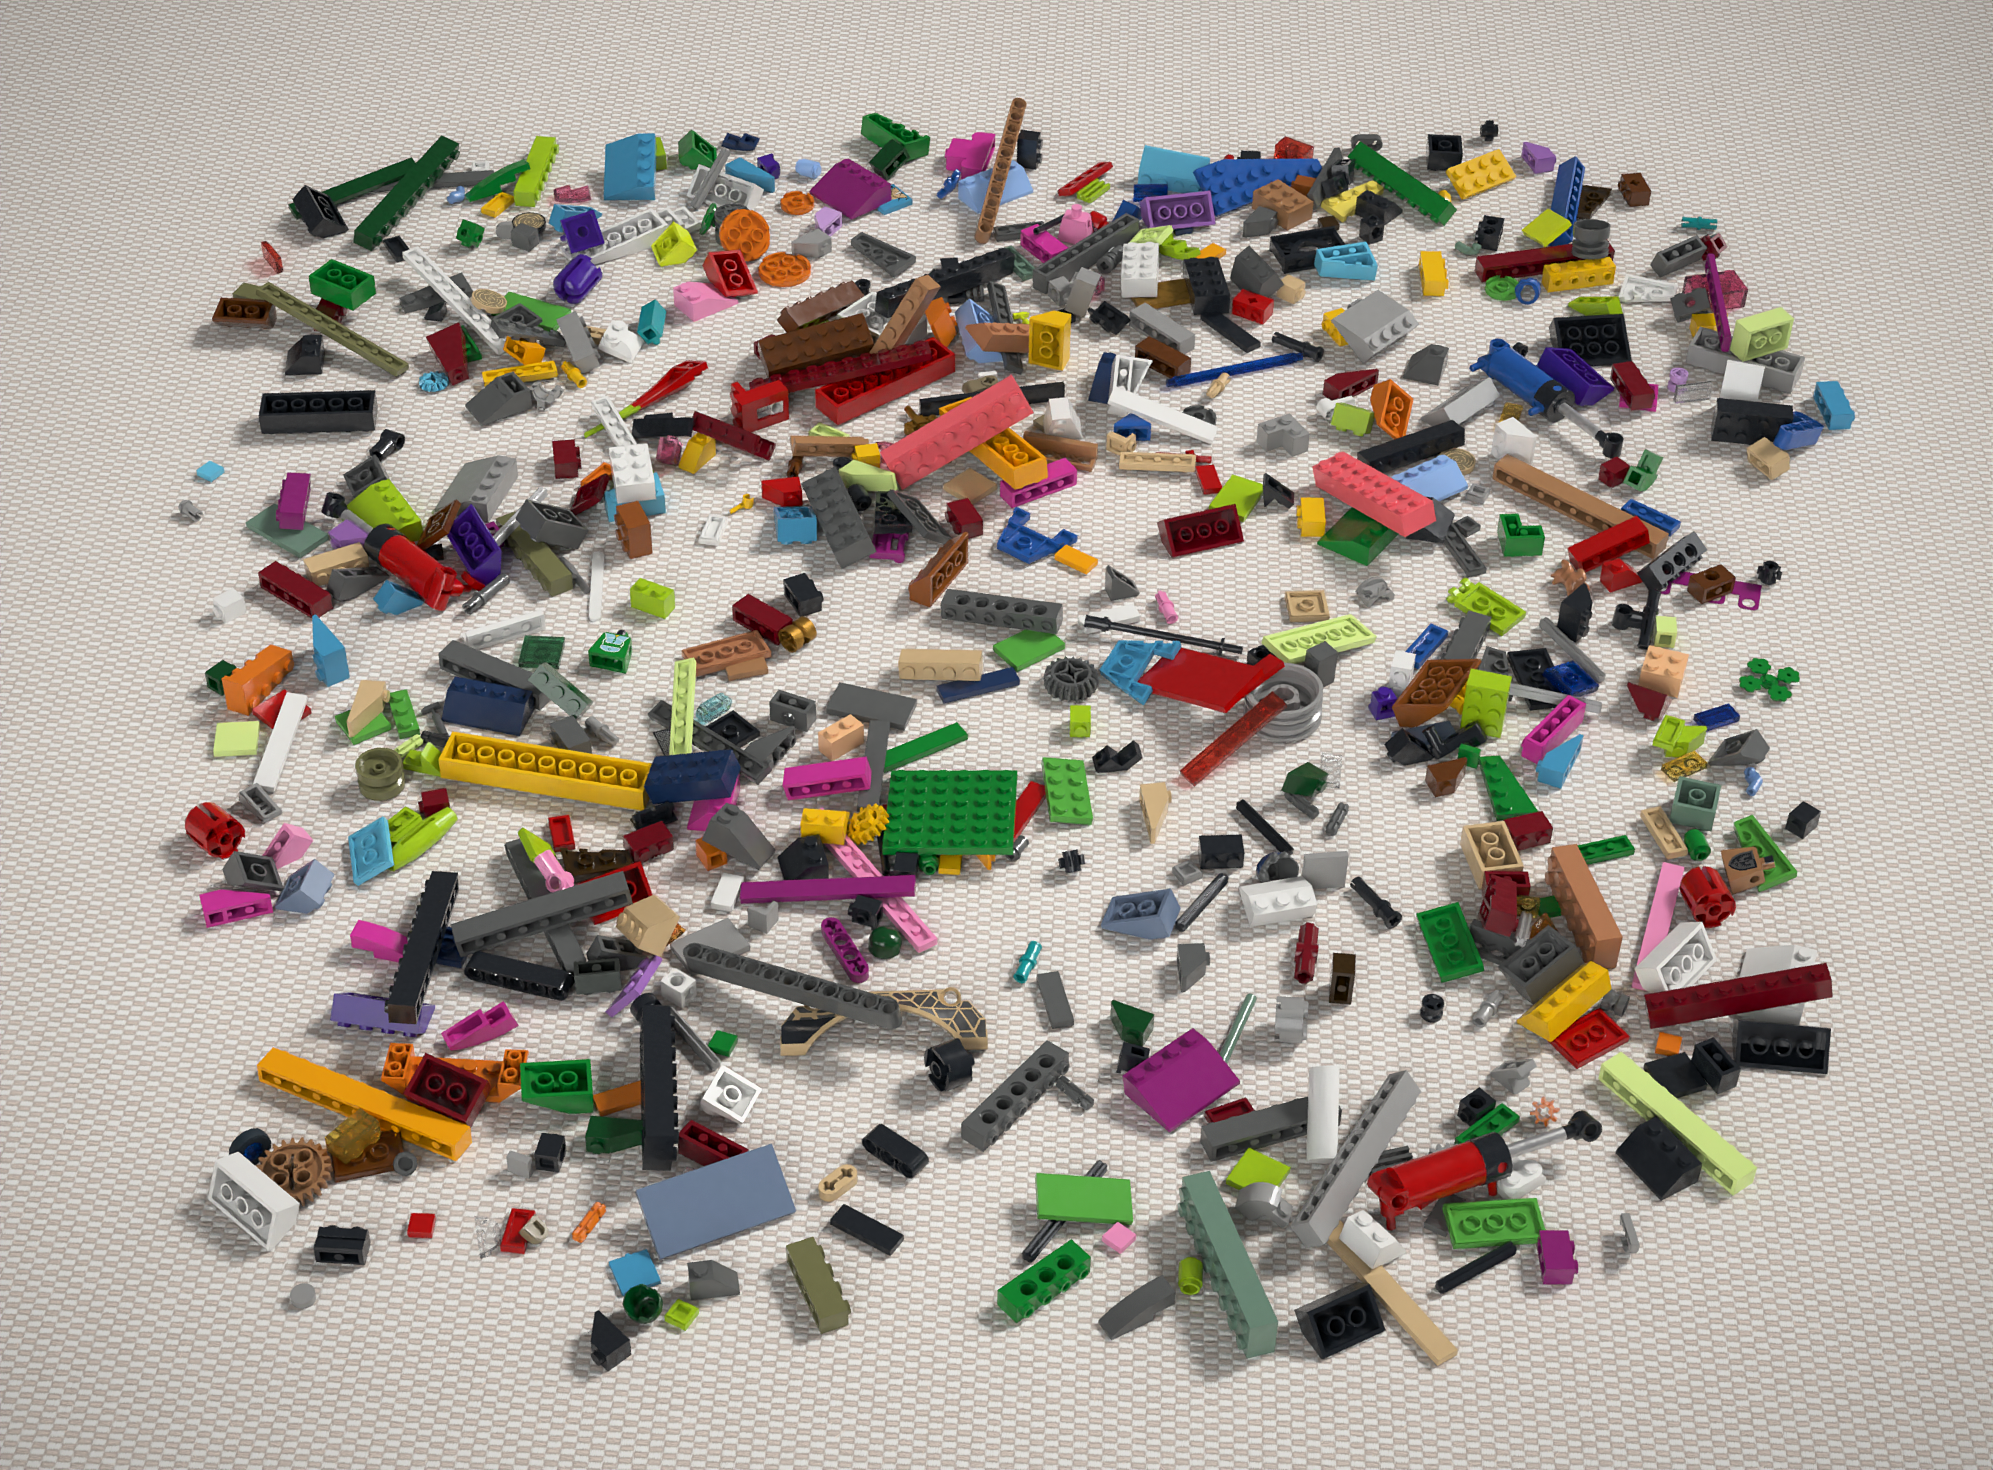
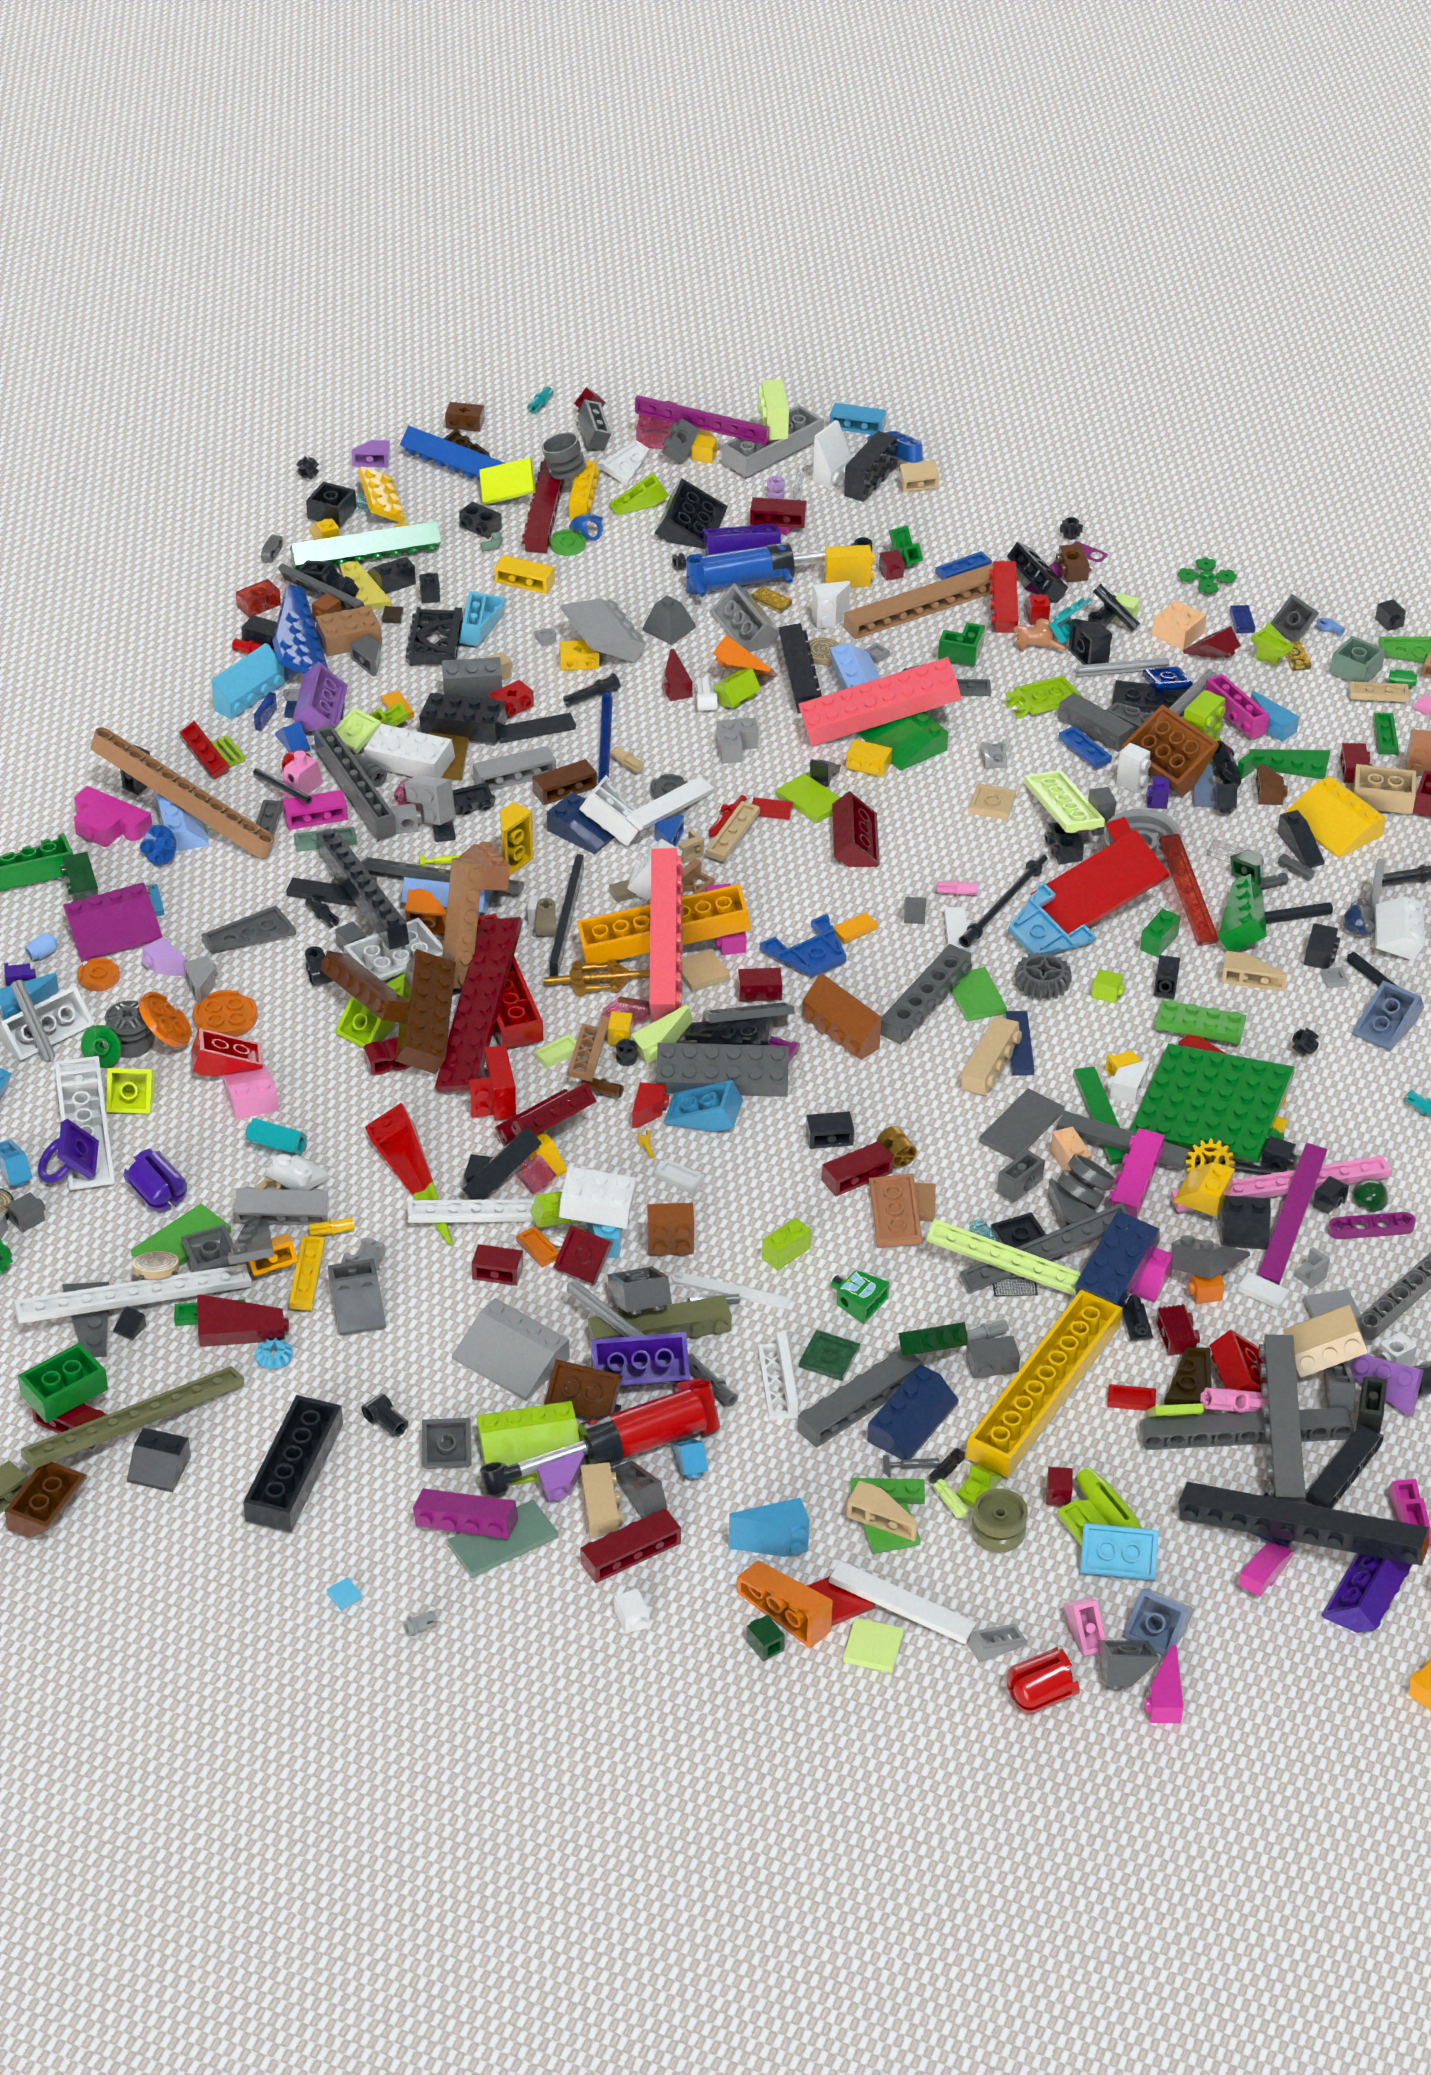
camera: 70 degrees left, 0 degrees up
(796, 744) = (1086, 1180): none -> dark grey wheel
(957, 757) = (1129, 1082): none -> white slope
(975, 750) = (1120, 1060): none -> yellow brick
(1173, 740) = (1160, 933): none -> green brick
(1230, 786) = (1243, 916): none -> green wedge
(1377, 812) = (1299, 838): none -> black slope
(1408, 160) = (324, 529): none -> yellow slope
(1428, 832) = (1339, 817): none -> yellow slope
(1579, 441) = (849, 564): none -> yellow brick
(1600, 589) = (1062, 622): none -> teal bracket

